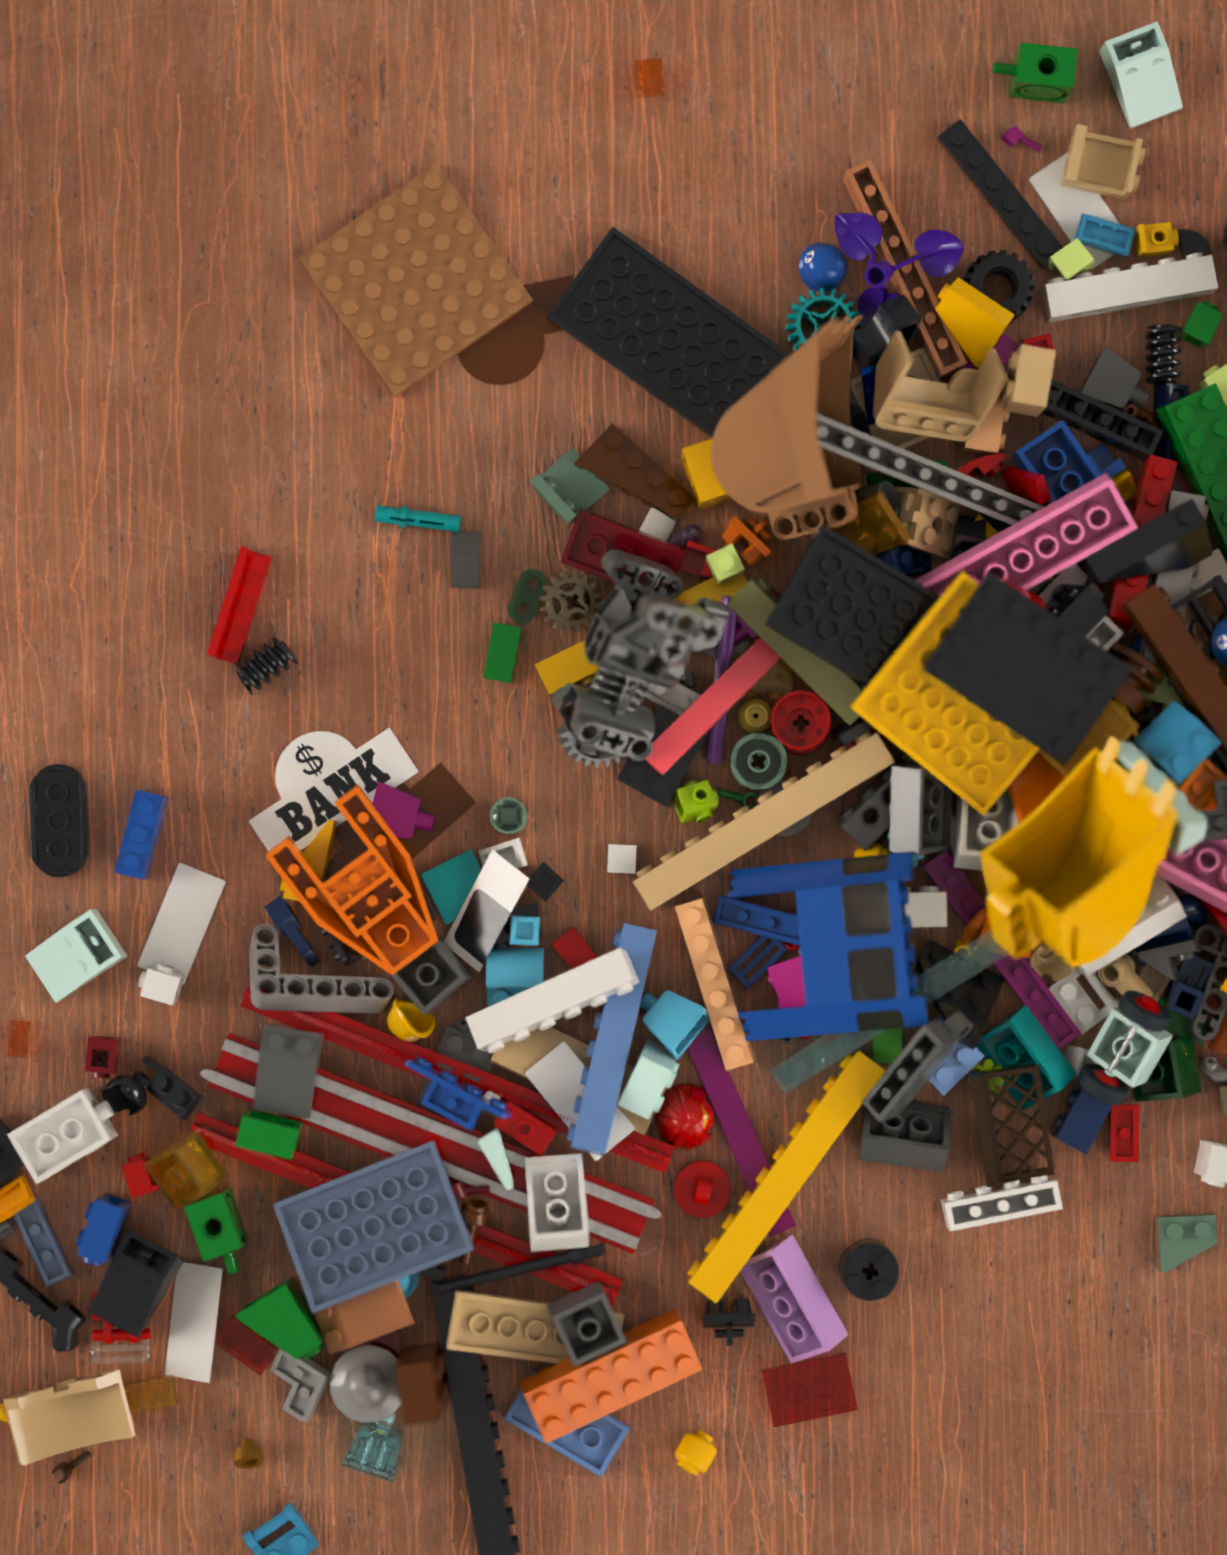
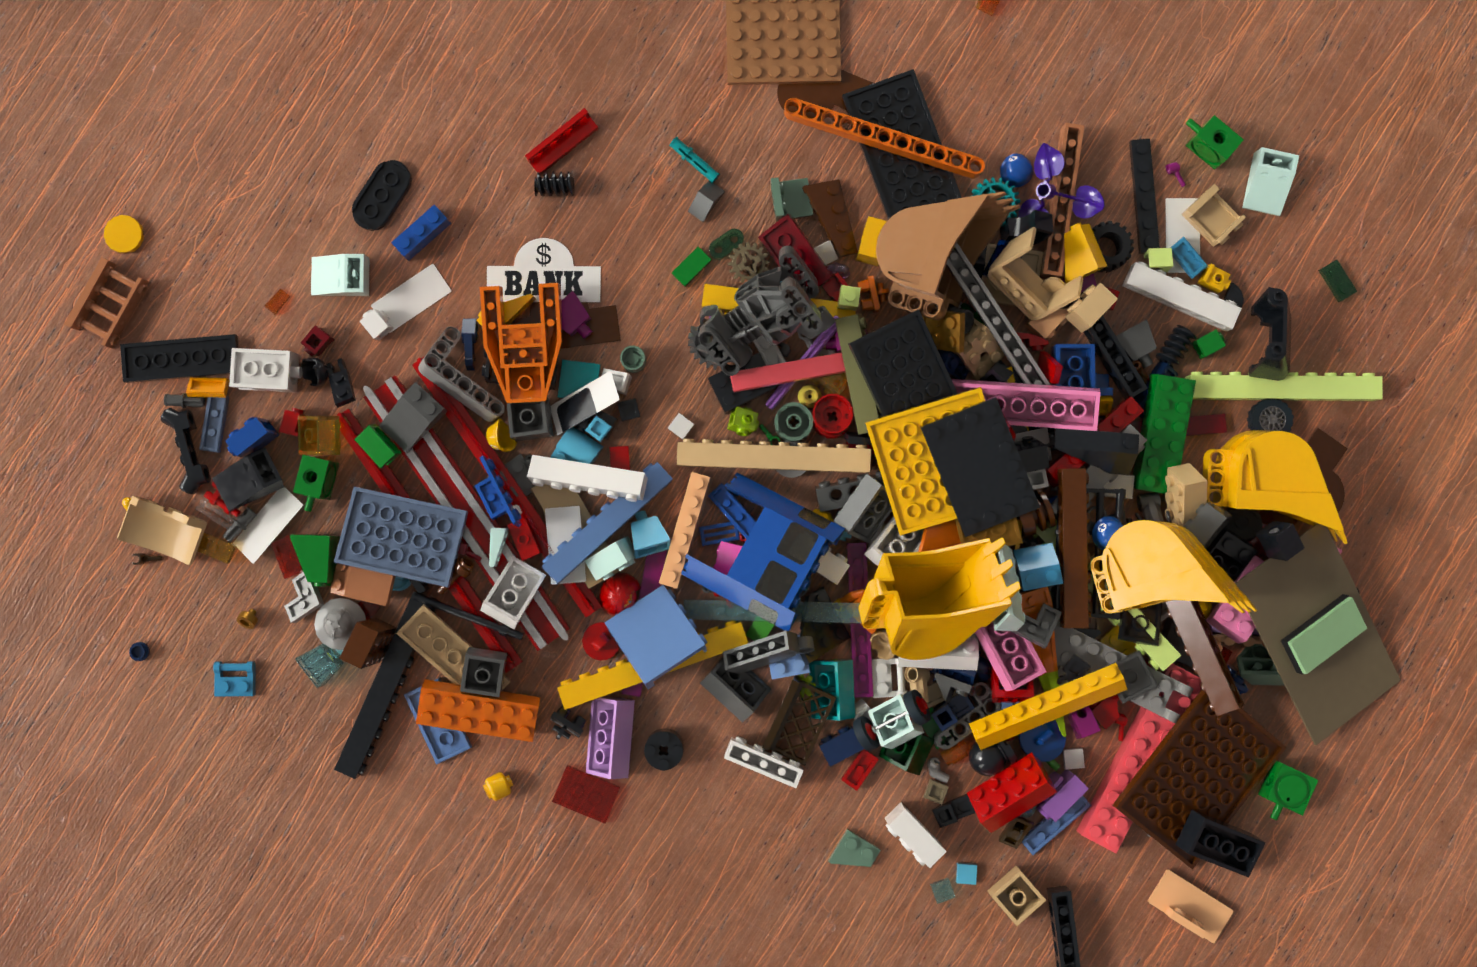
camera: 30 degrees right, 0 degrees up
(159, 1346) = (239, 524): none -> dark grey axle
(646, 328) = (893, 137): none -> orange beam
(766, 1137) = (655, 635): none -> medium blue panel

